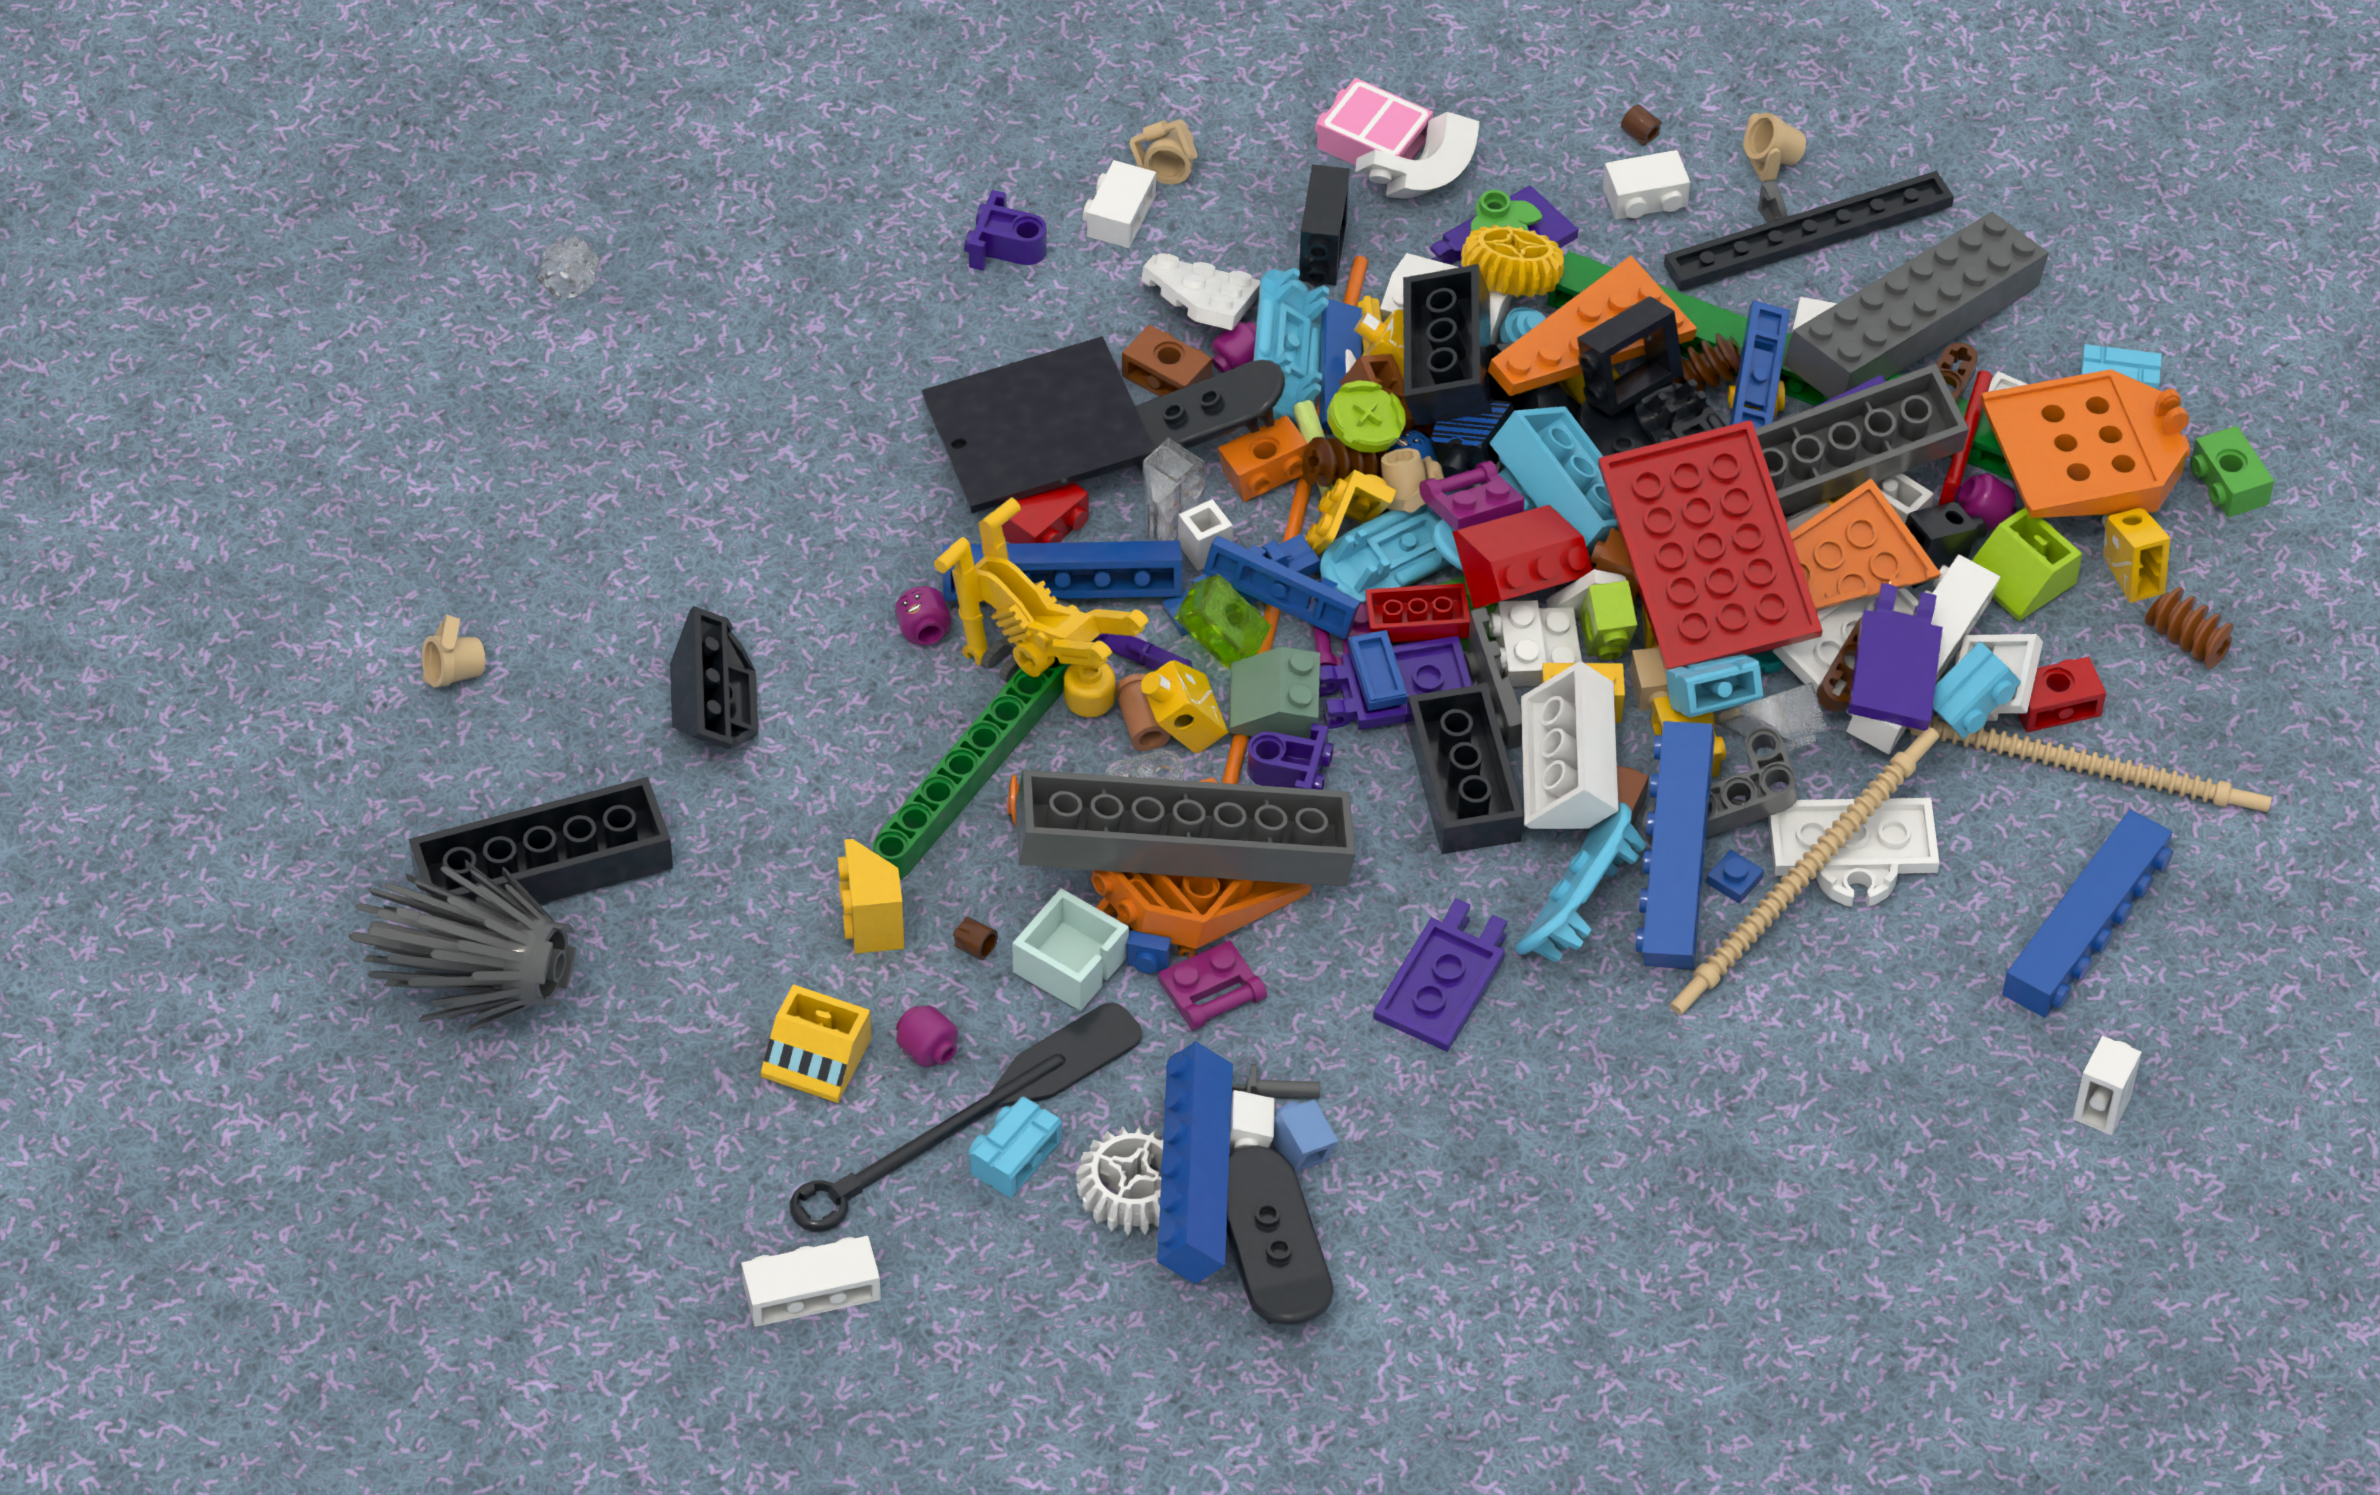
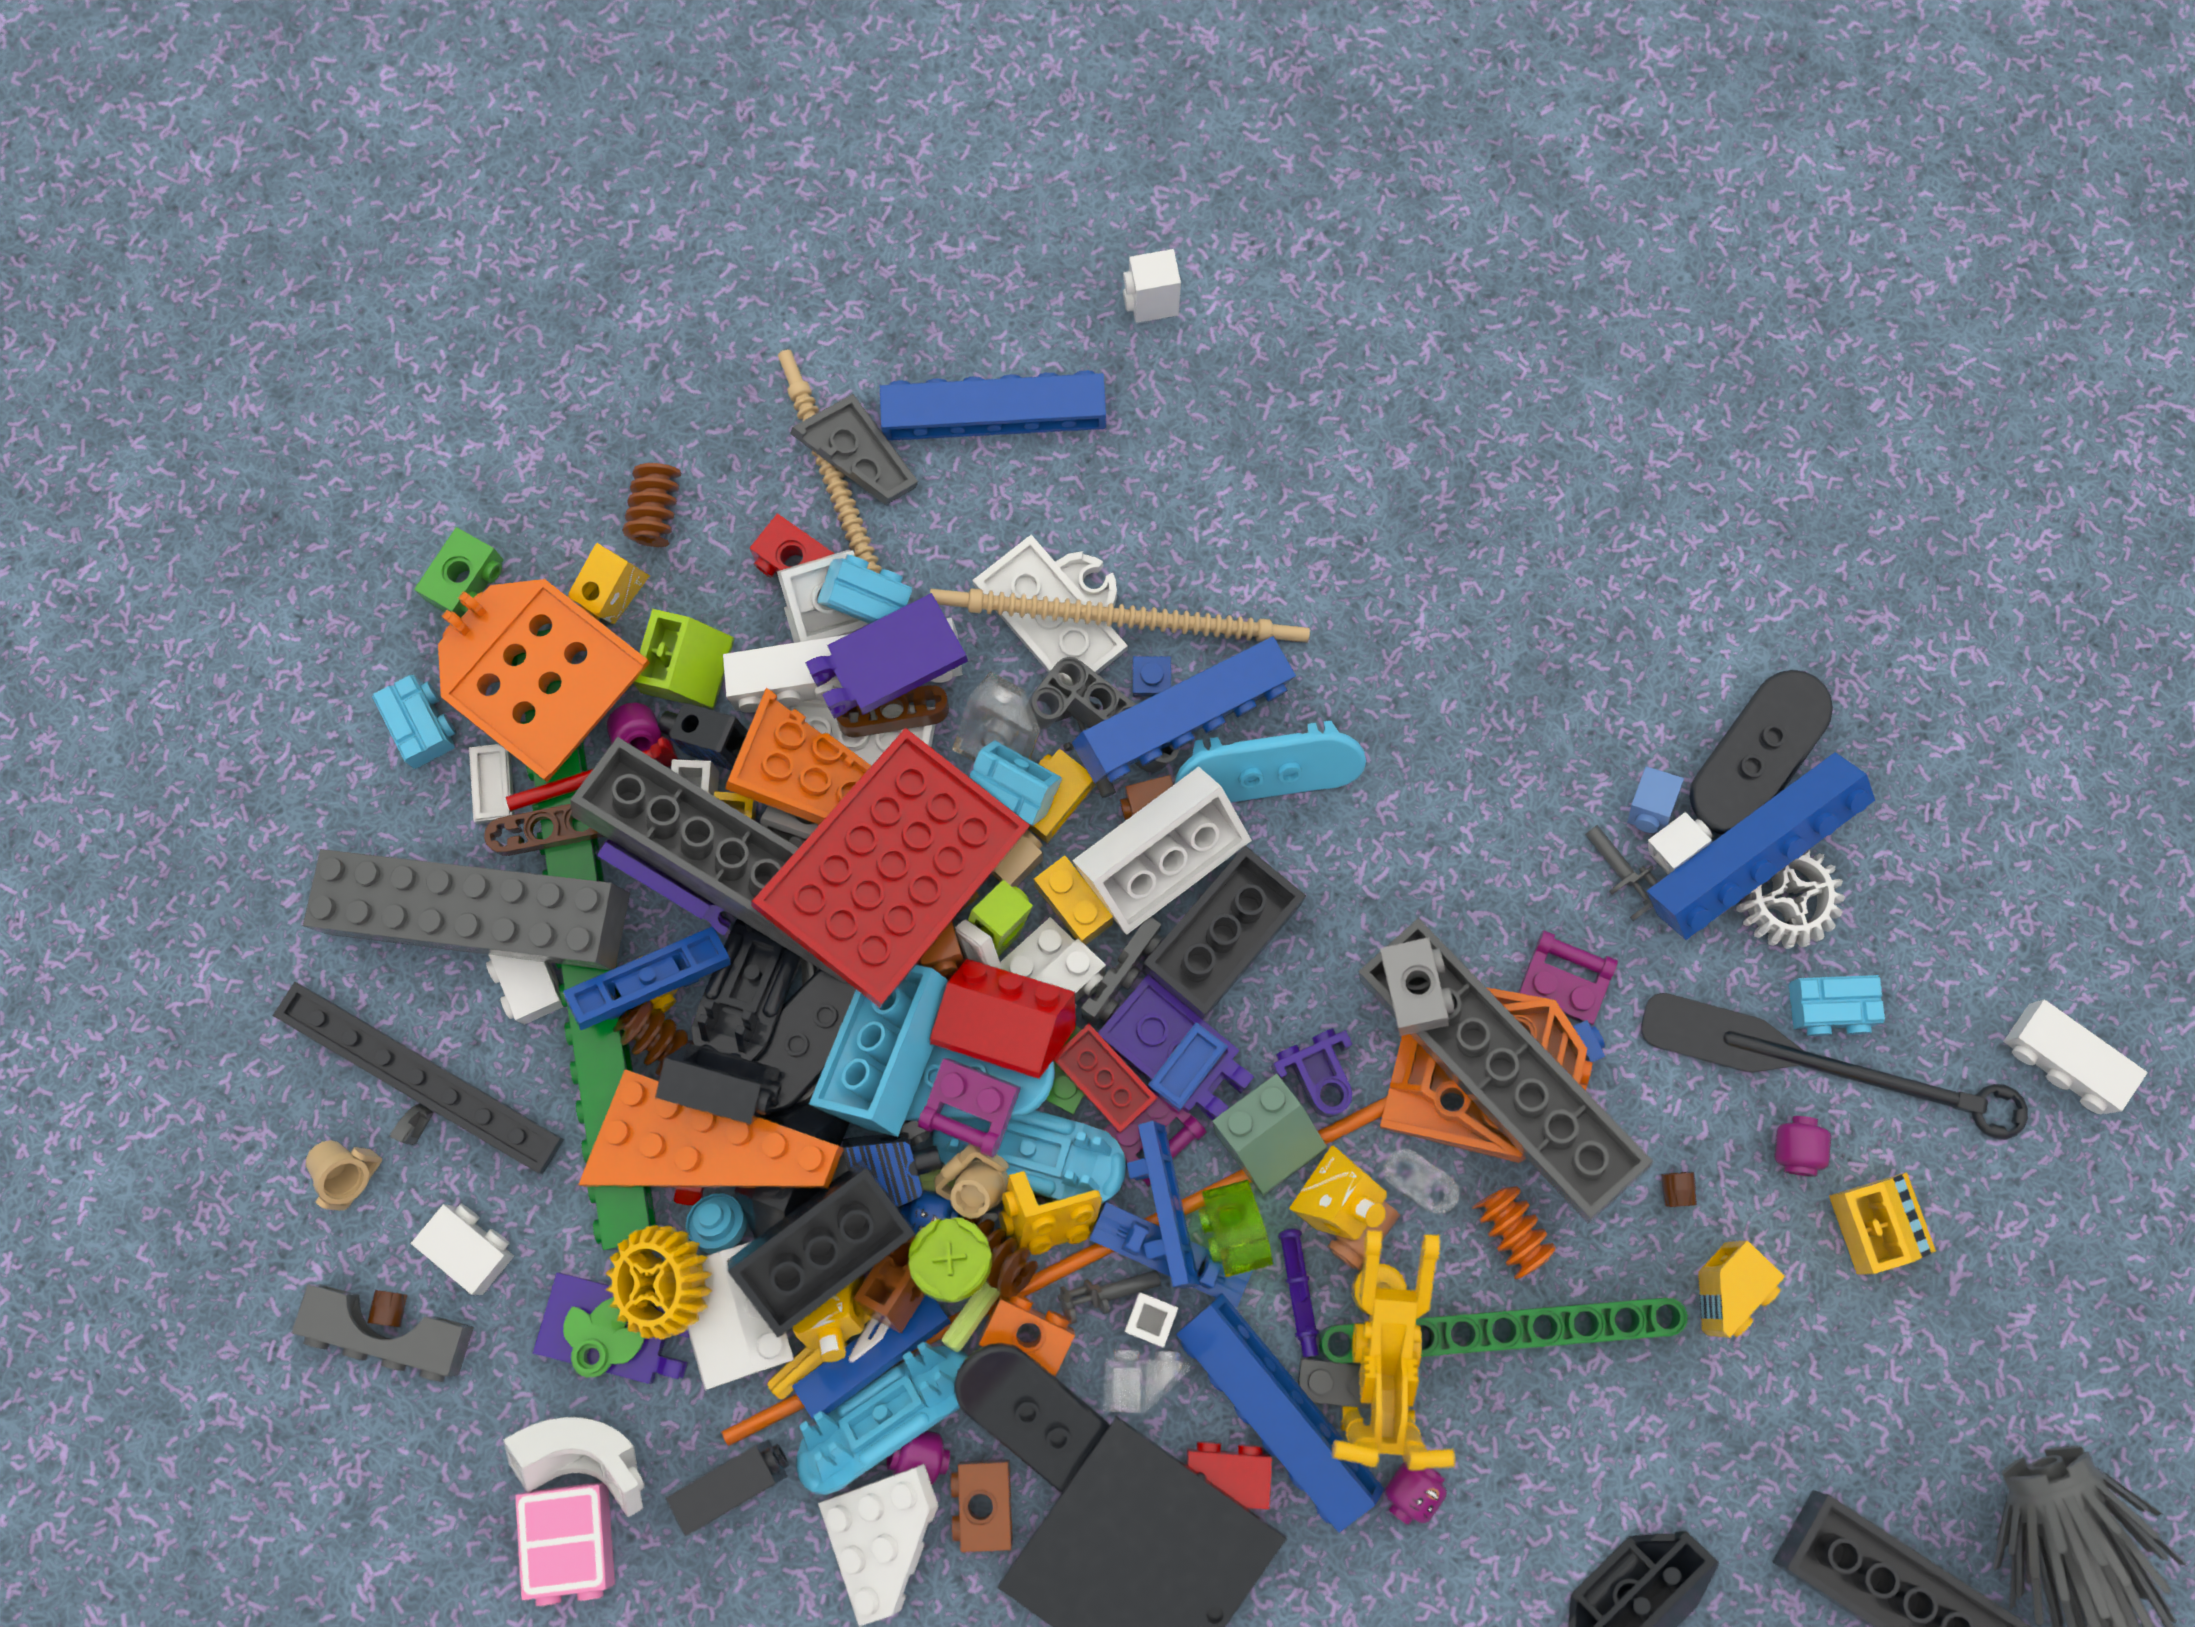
camera: 125 degrees left, 25 degrees up
(1070, 949) = (1647, 1098): light aqua piece -> none
(1254, 520) = (1101, 1295): none -> dark grey piece
(1302, 795) = (1413, 1011): none -> light grey brick
(1443, 978) = (1421, 814): dark purple tile -> none
(1661, 88) = (336, 1319): none -> dark grey arch
(2143, 784) = (857, 448): none -> dark grey wing

